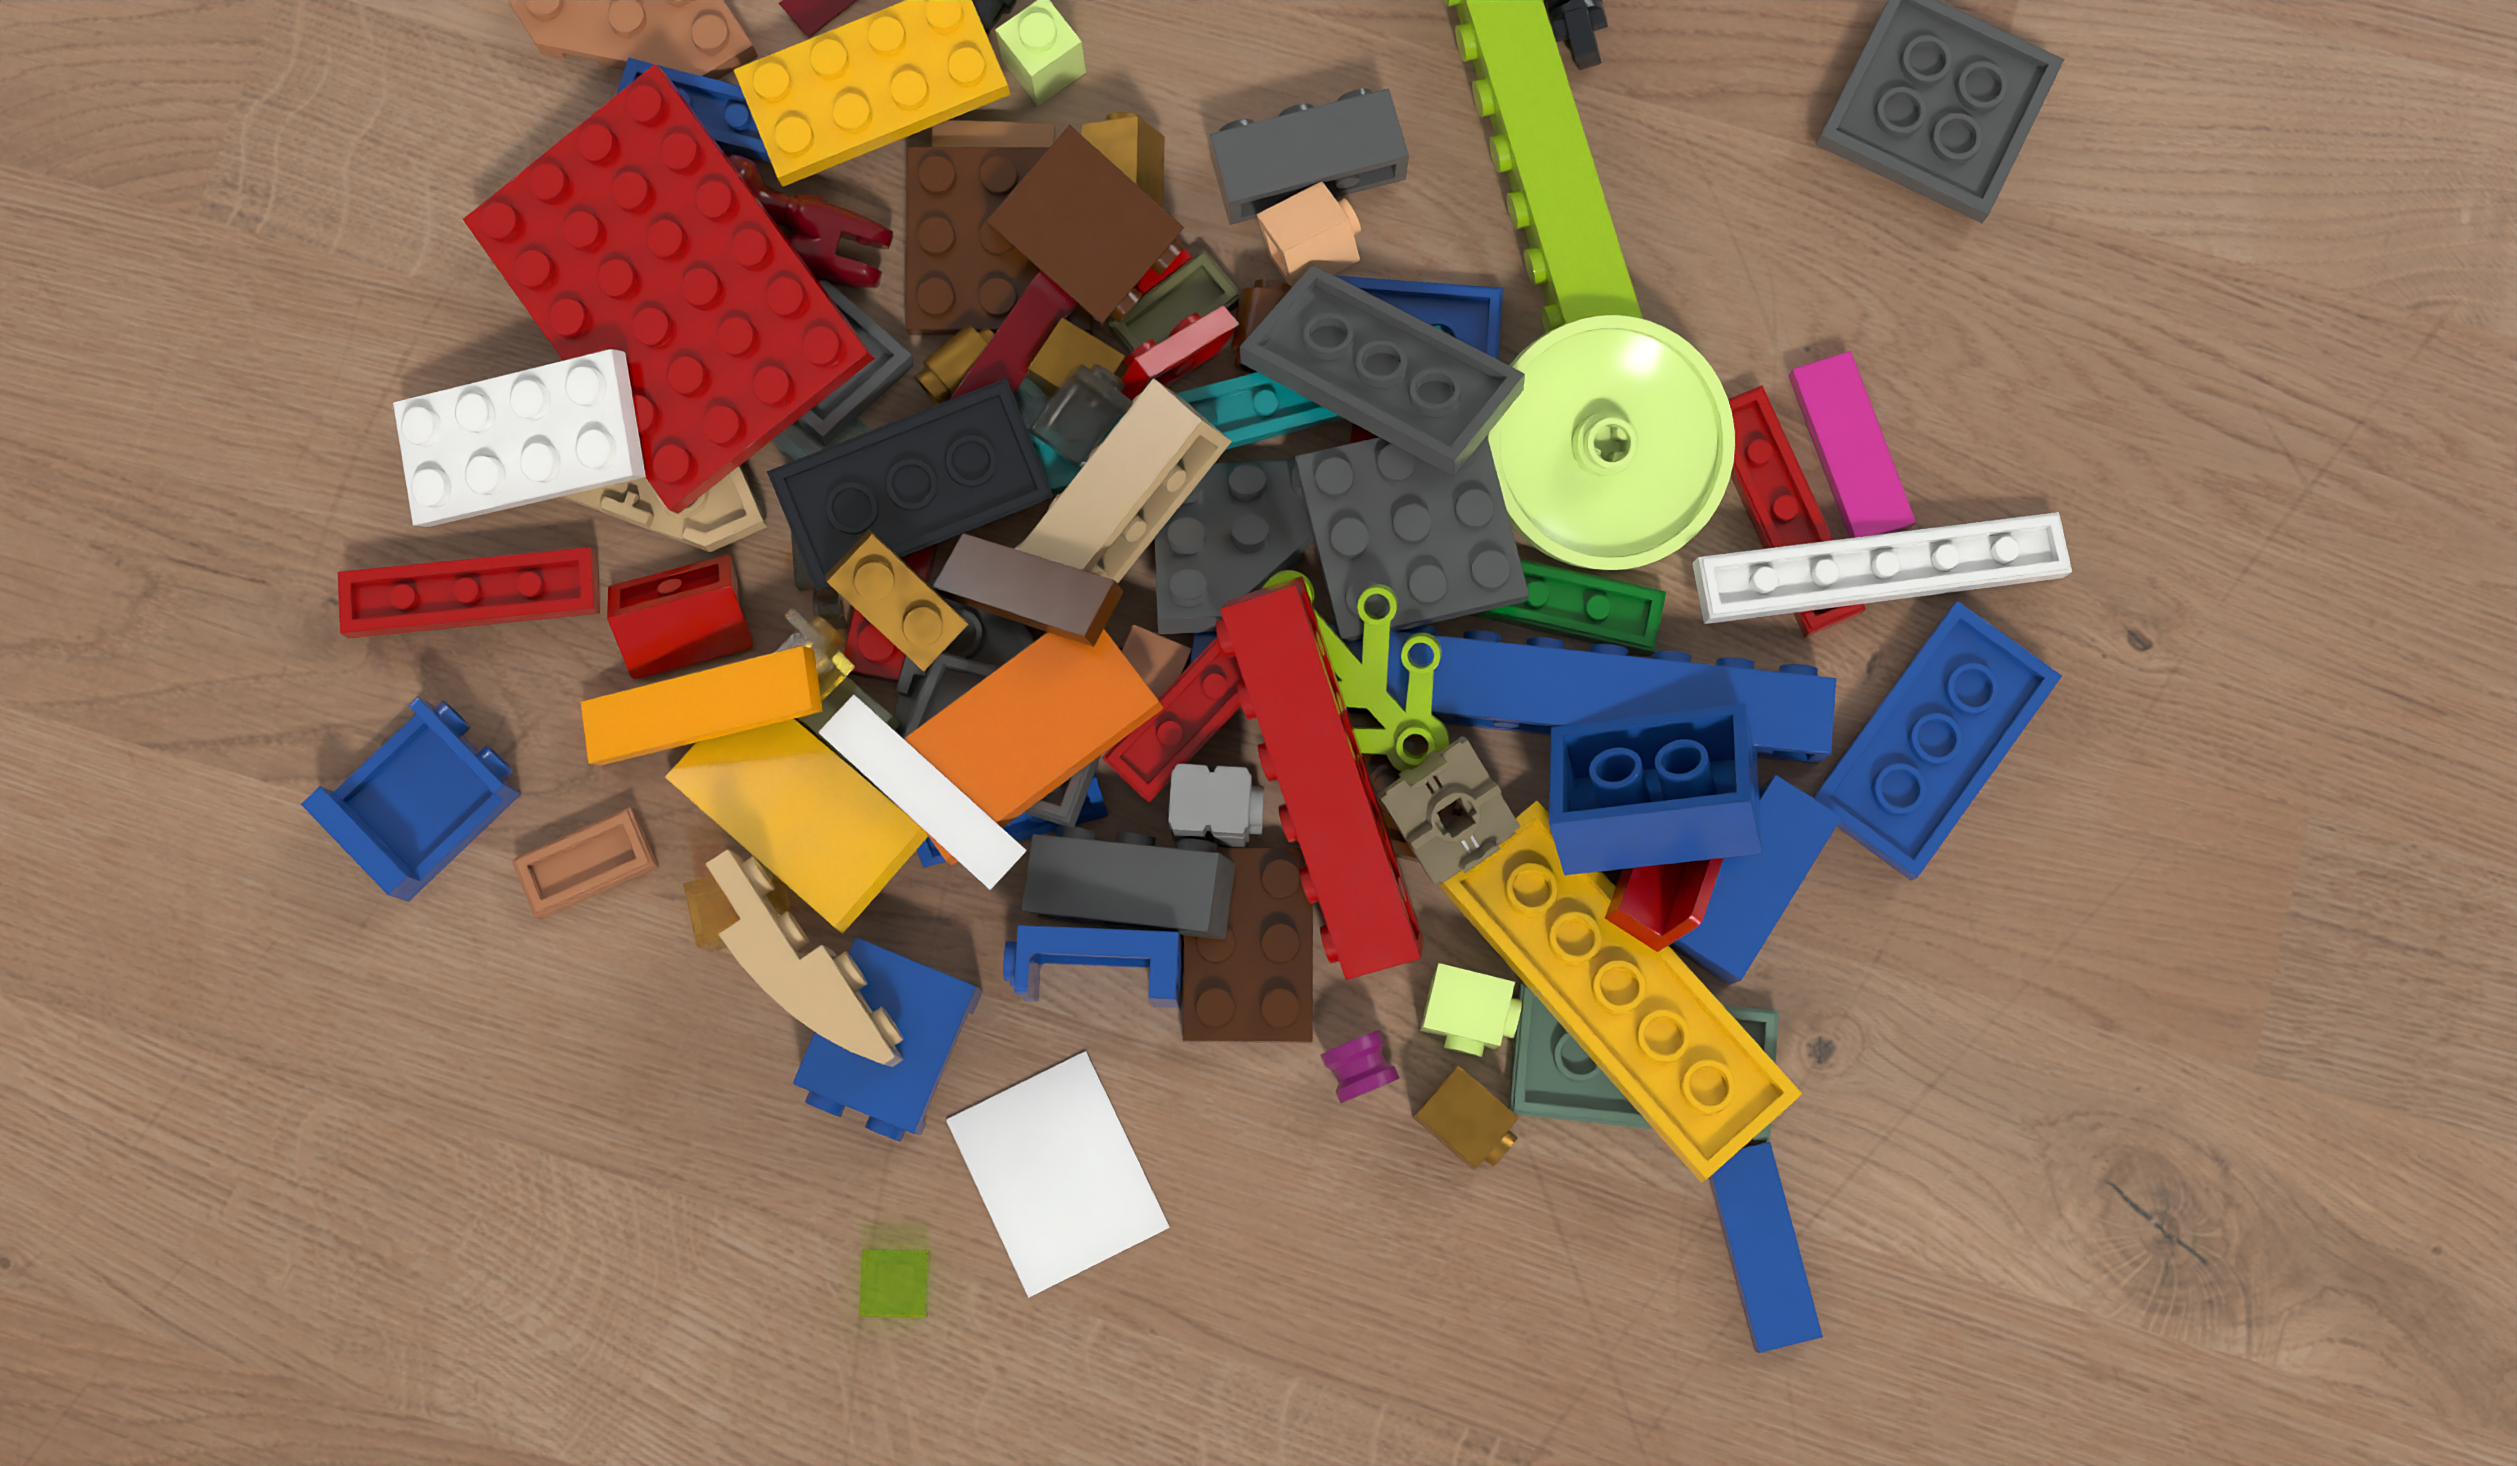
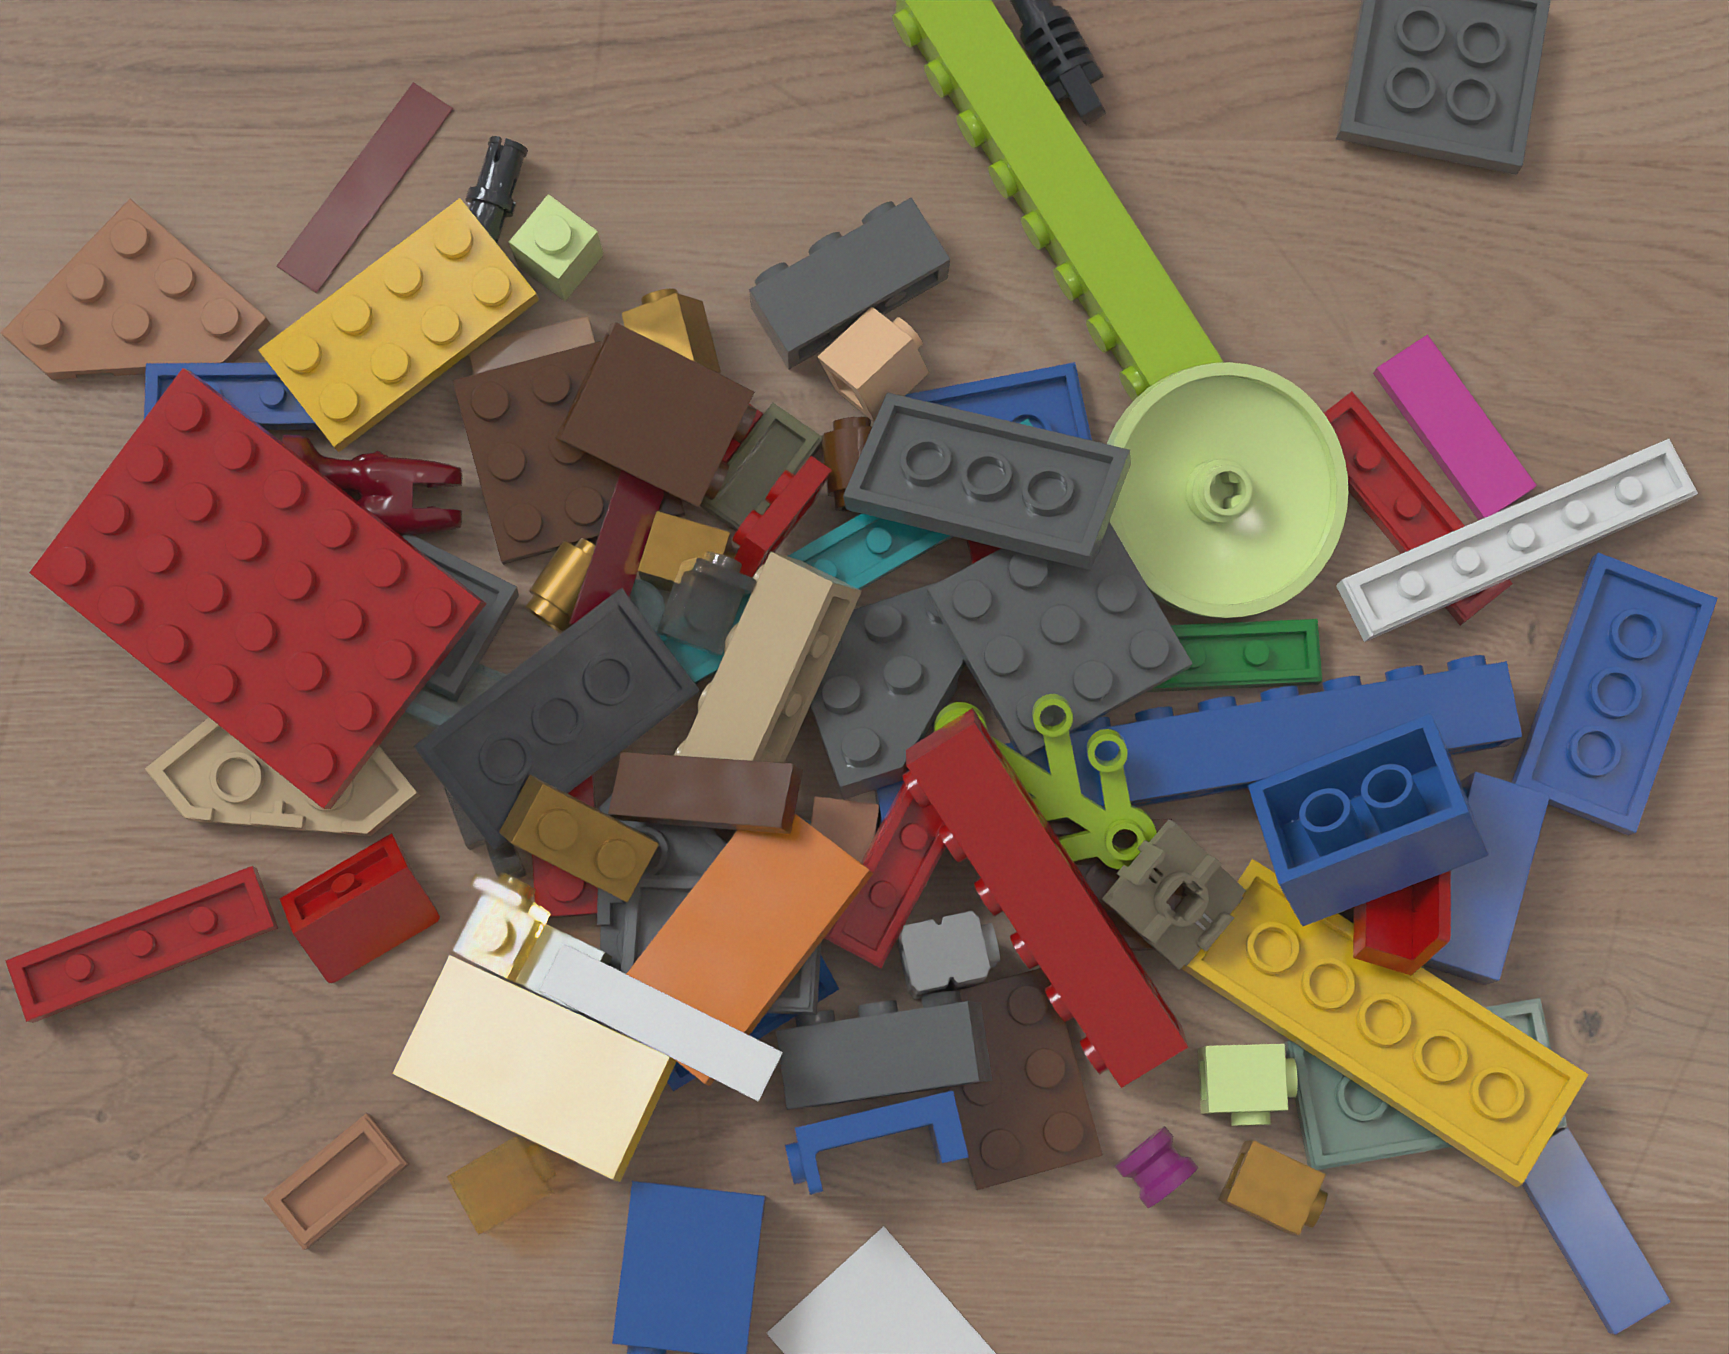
camera: 20 degrees left, 0 degrees up
(416, 800) = (150, 1166): blue panel -> none
(519, 438) = (151, 778): white plate -> none
(701, 706) = (411, 994): light orange tile -> none
(812, 988) = (611, 1247): tan slope -> none

